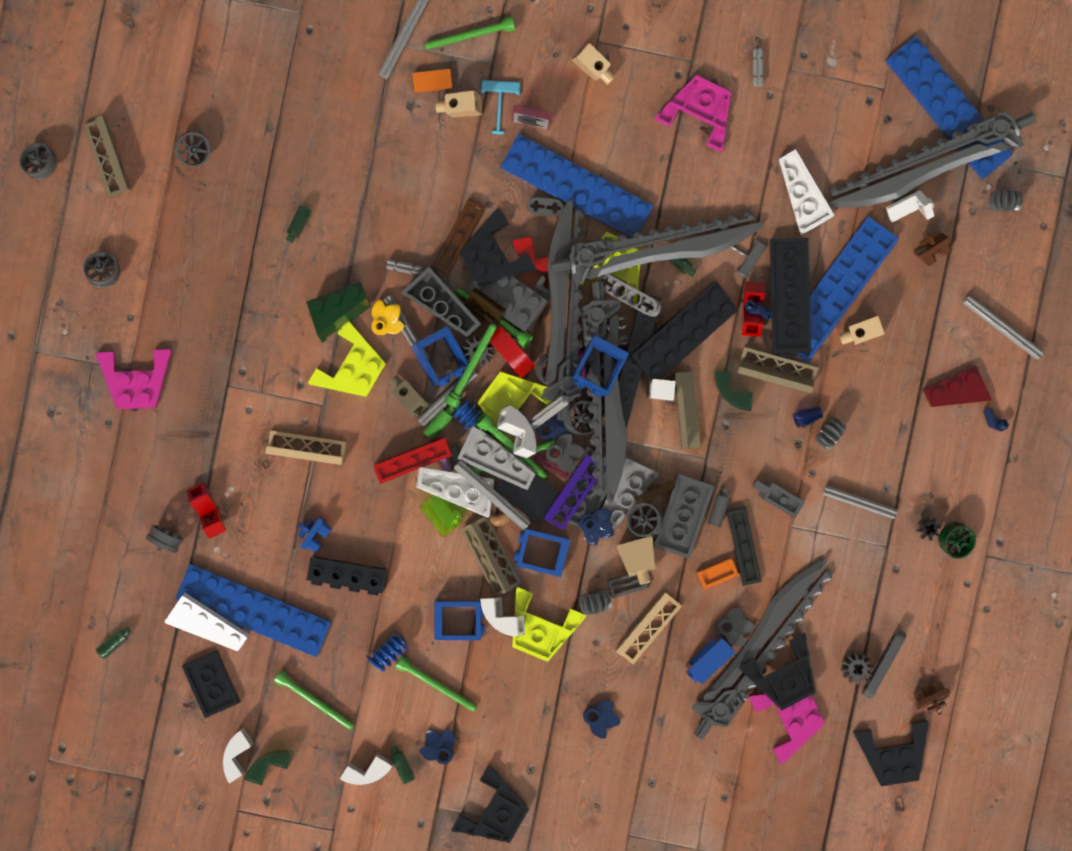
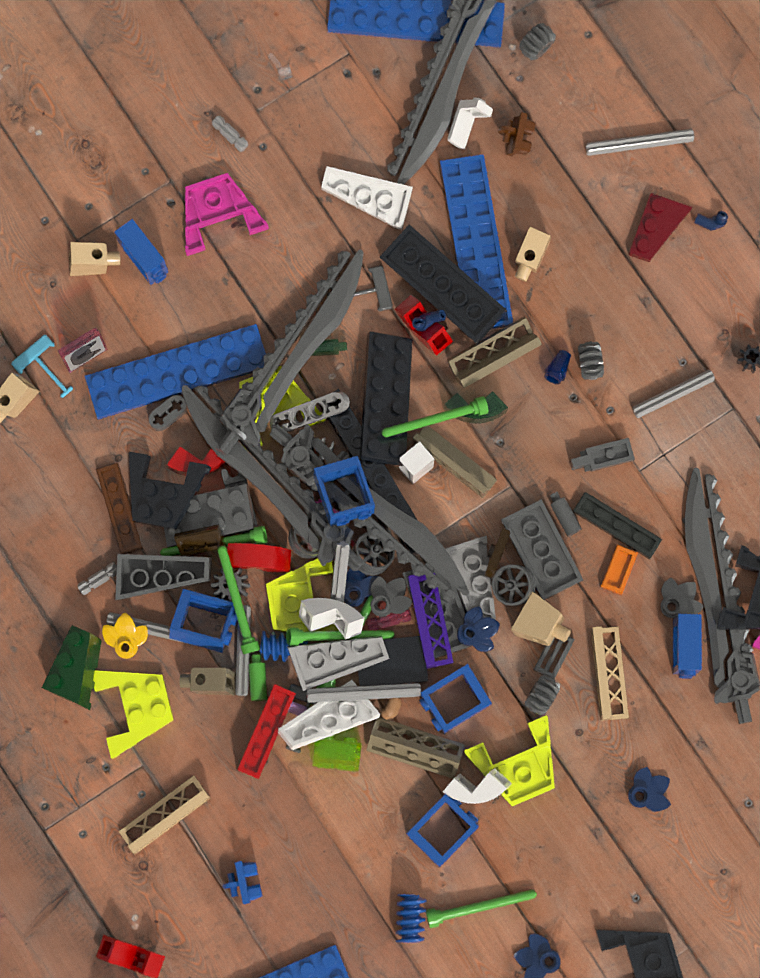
camera: 45 degrees left, 10 degrees down
(346, 574) = (308, 888): black brick -> none
(627, 91) = (142, 252): none -> blue window
(732, 394) = (478, 406): none -> bright green piece

